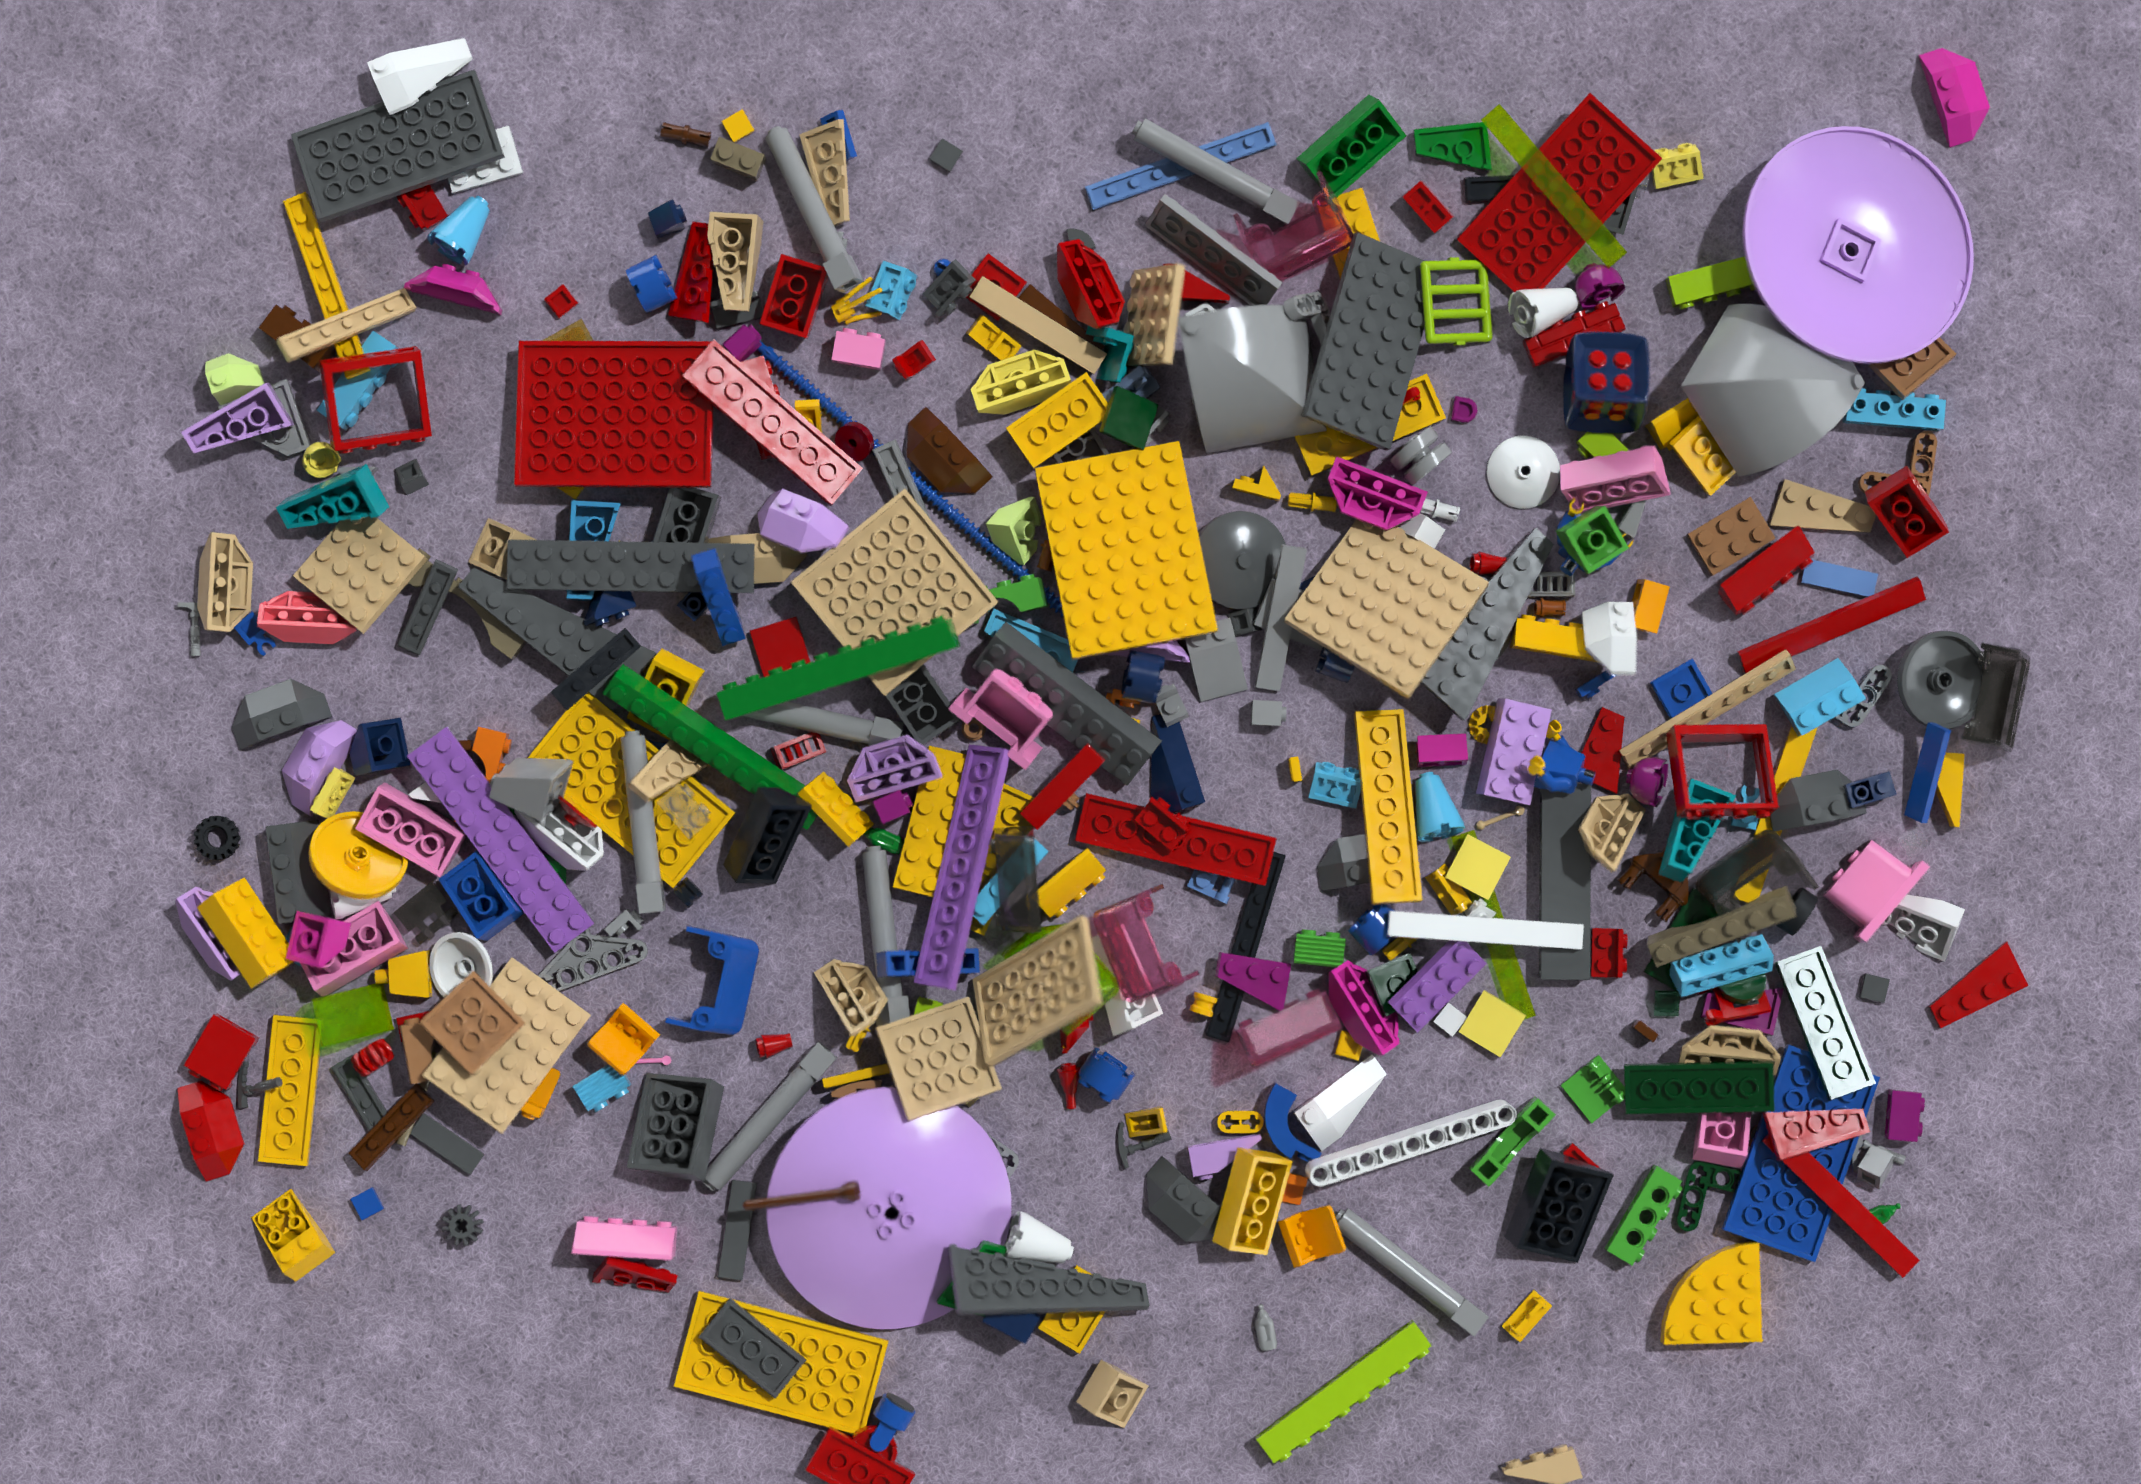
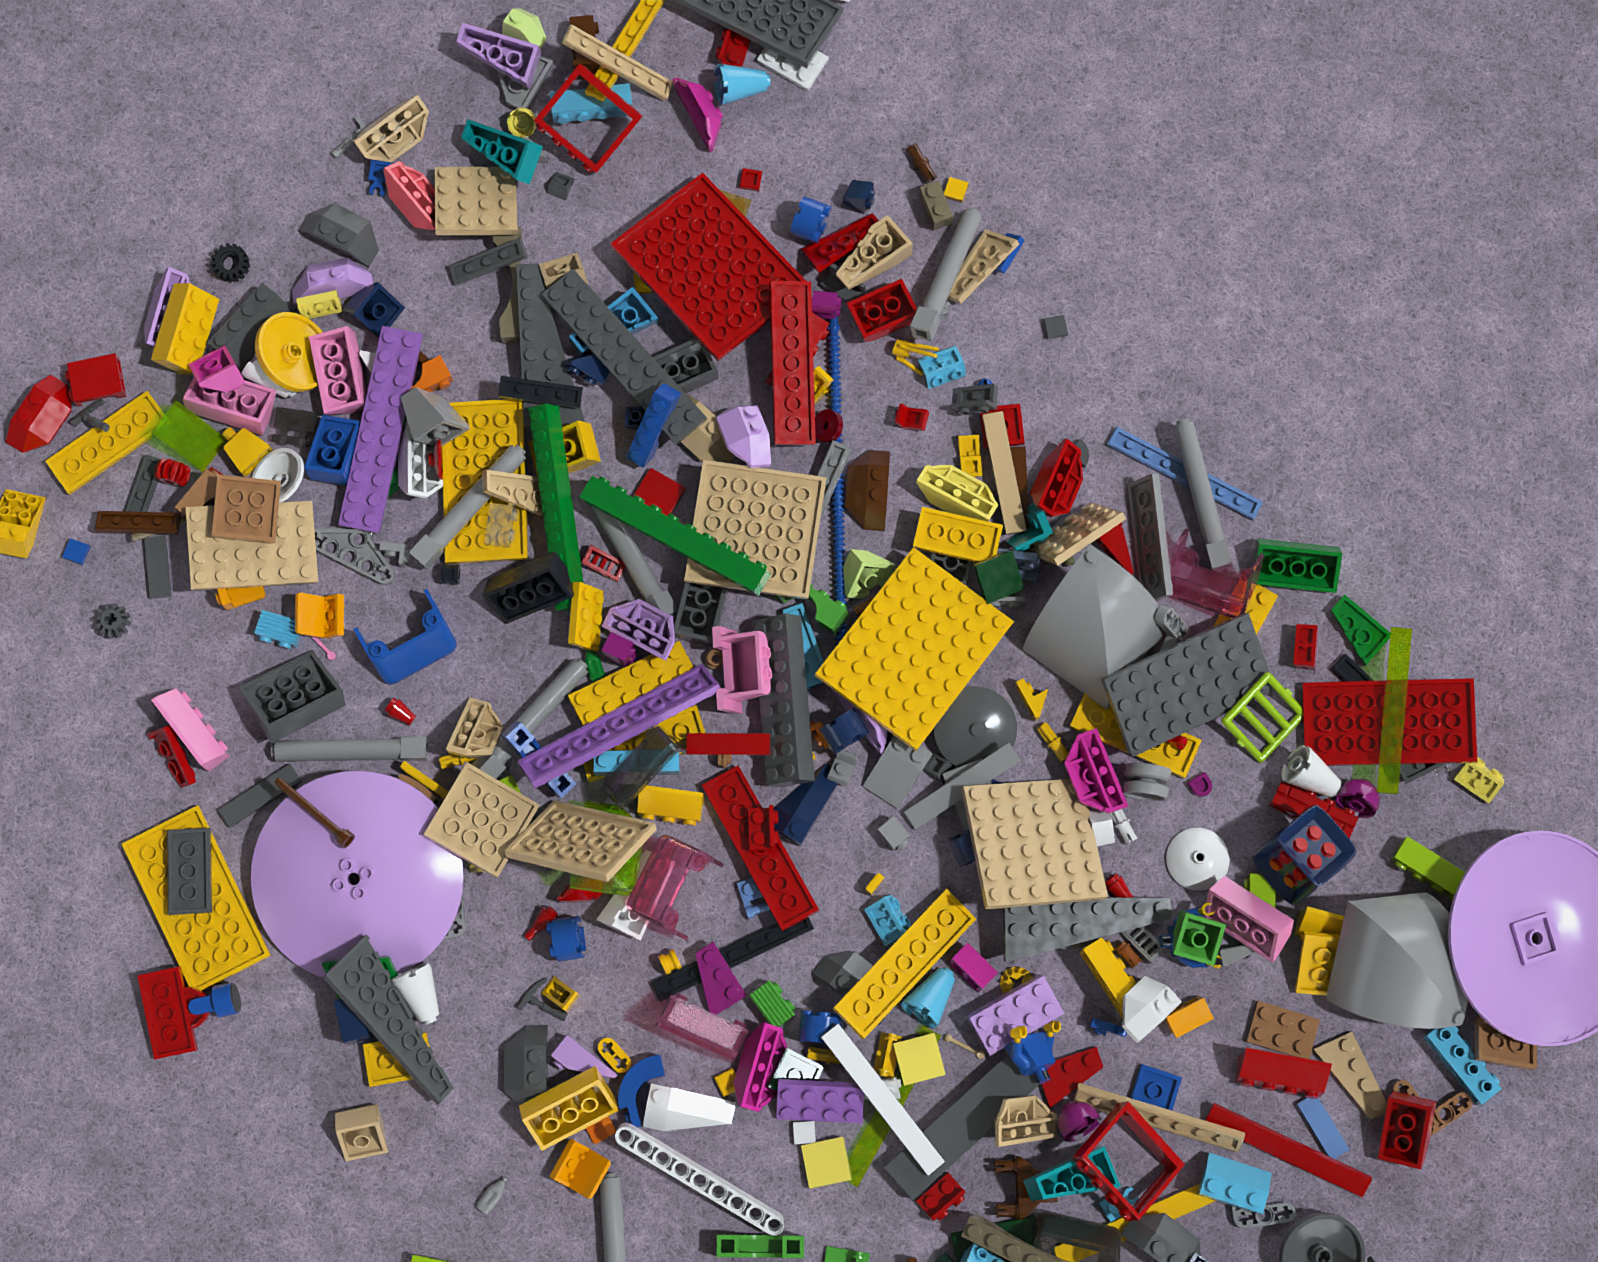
camera: 50 degrees right, 10 degrees down
(858, 349) = (886, 378): bright pink brick -> none

